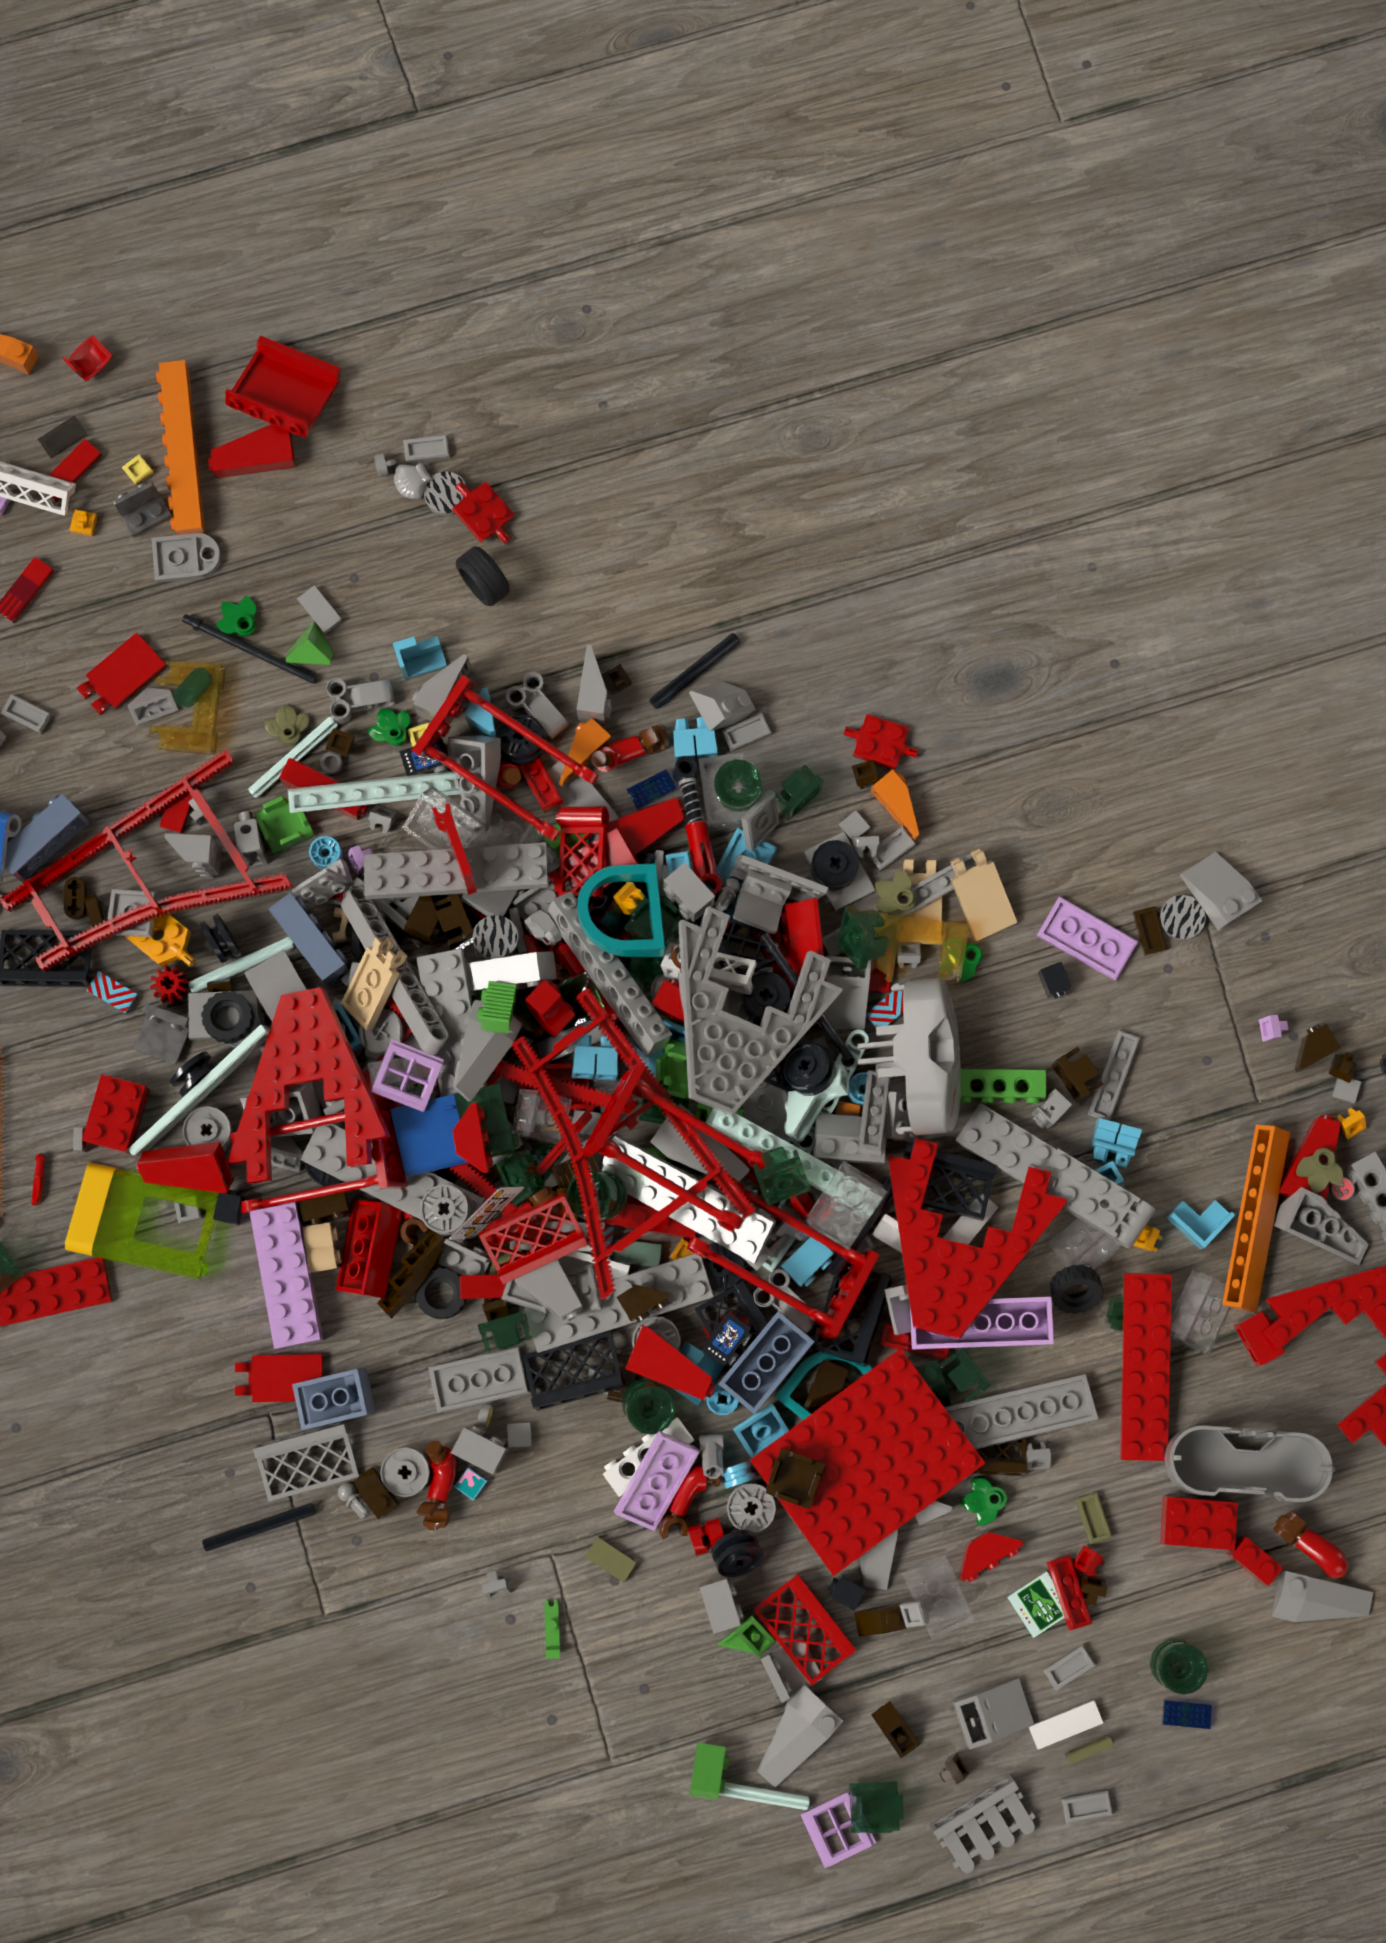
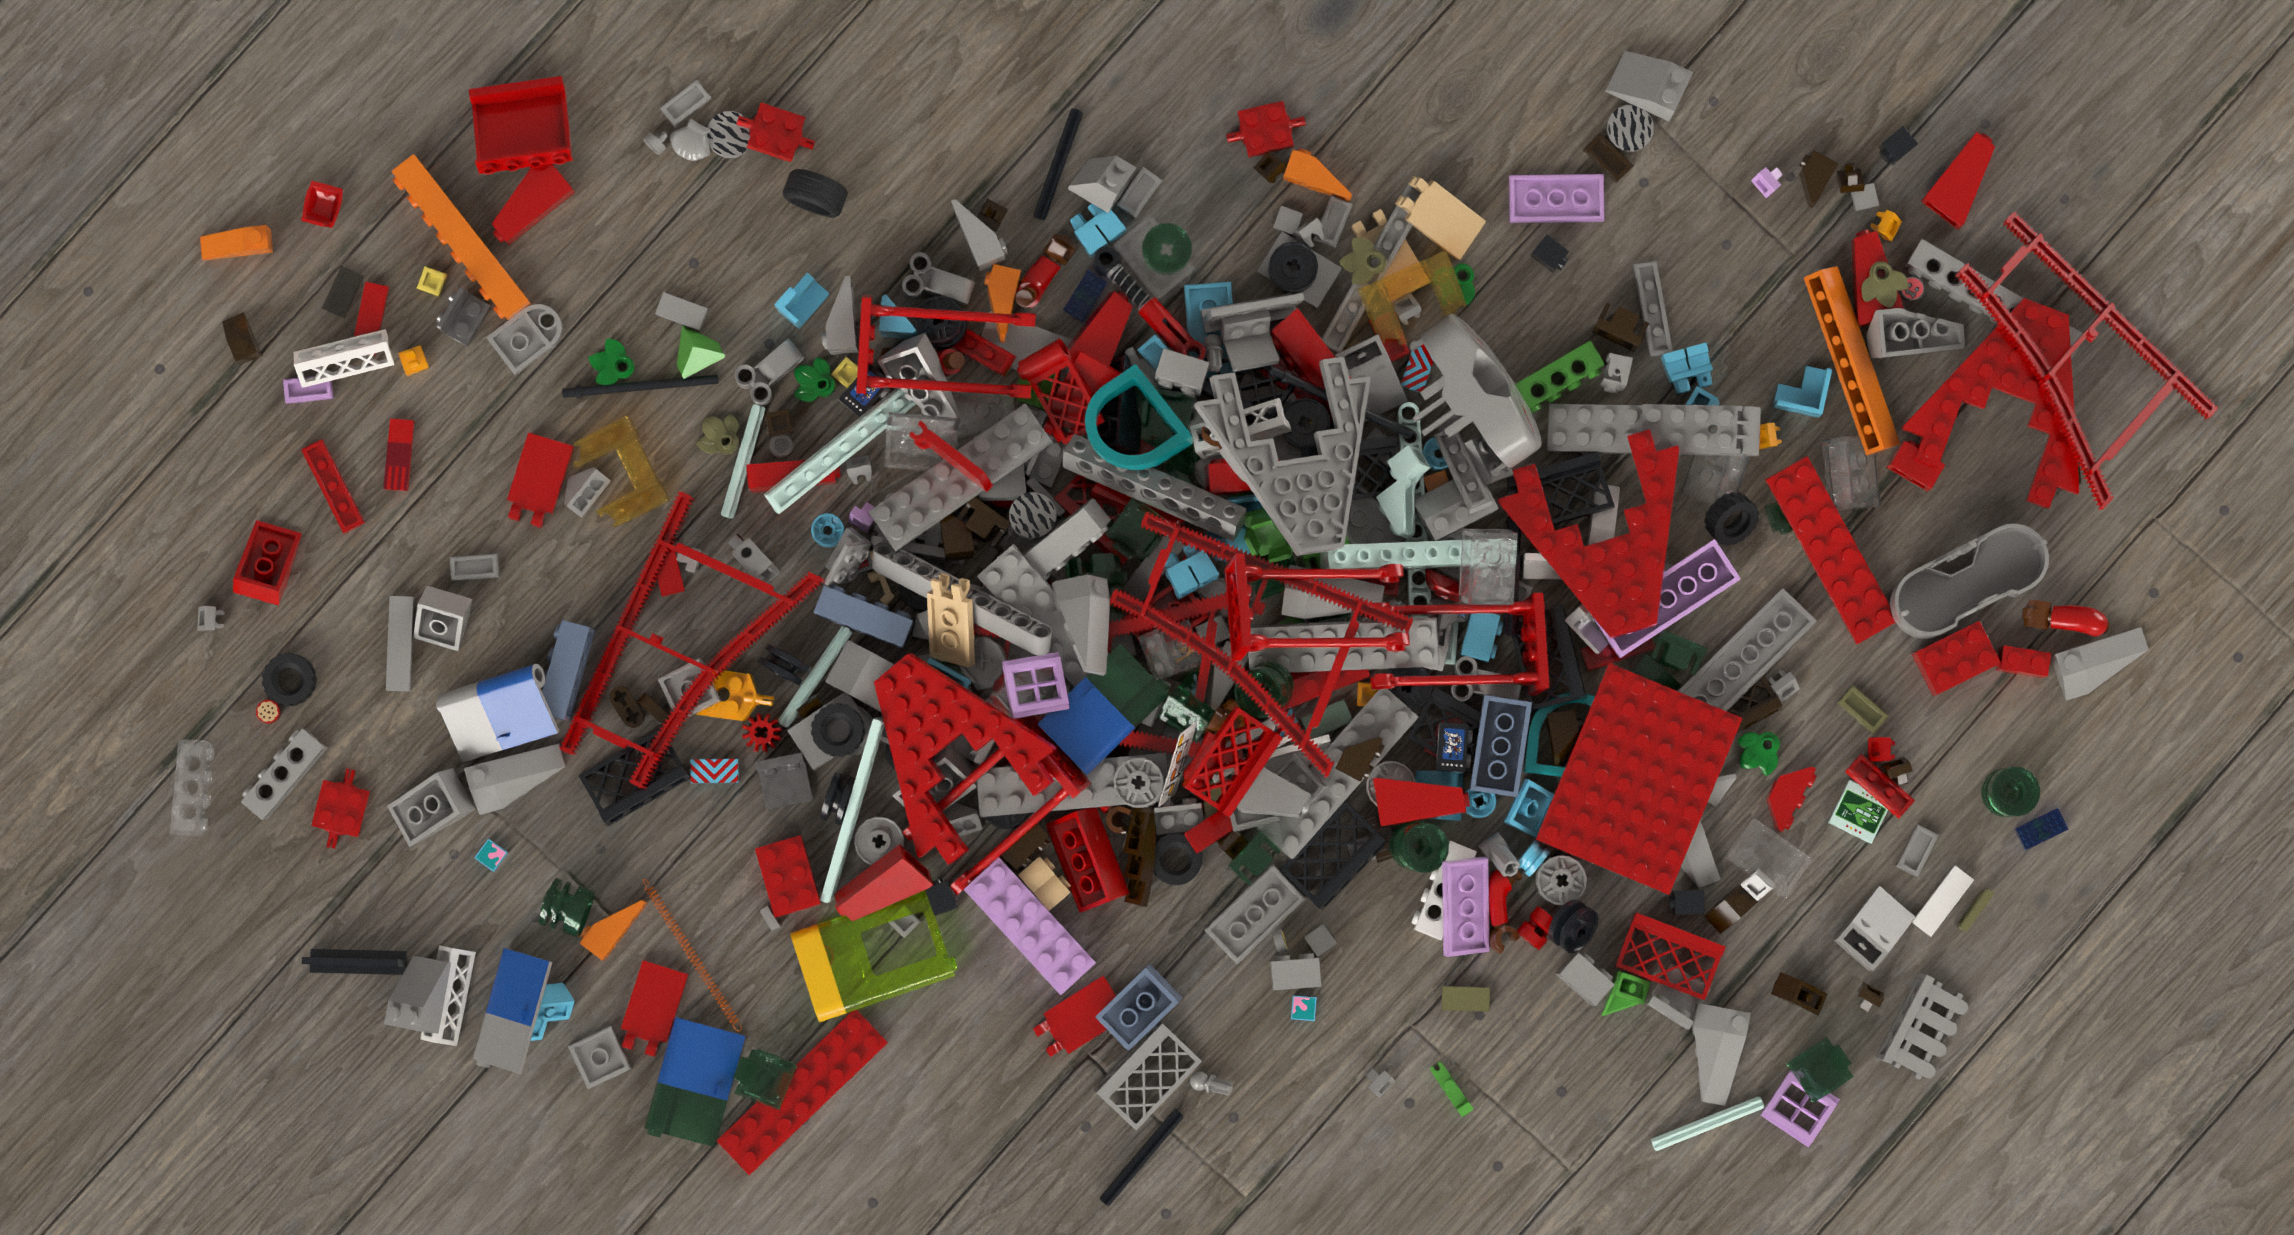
camera: 30 degrees left, 5 degrees up
(38, 1180) = (754, 975): red piece -> none
(193, 687) = (614, 452): clear green tile -> none
(199, 852) = (716, 601): light grey slope -> none
(281, 827) = (773, 530): bright green panel -> none
(375, 1493) = (1225, 1066): dark brown slope -> none
(395, 1481) = (1236, 1045): light grey wheel -> none
(443, 1474) = (1275, 1014): piece -> none
(471, 1139) = (1127, 706): red slope -> none
(498, 1007) = (1079, 576): bright green brick -> none
(543, 928) = (1068, 481): light grey rock -> none
(549, 1008) = (1123, 550): red brick -> none
(564, 1172) = (1223, 687): dark brown tile -> none
(628, 897) = (1129, 408): light orange tile -> none
(707, 1771) = (1660, 1126): bright green brick -> none
(760, 820) = (1203, 267): light grey tile -> none
(781, 1176) = (1418, 575): clear green panel -> none
(795, 1478) = (1586, 830): dark brown panel -> none
(798, 791) = (1219, 220): clear green panel -> none
(809, 1070) = (1383, 466): black wheel -> none
(858, 936) = (1355, 321): clear green panel -> none
(1087, 1806) = (2001, 959): light grey tile -> none

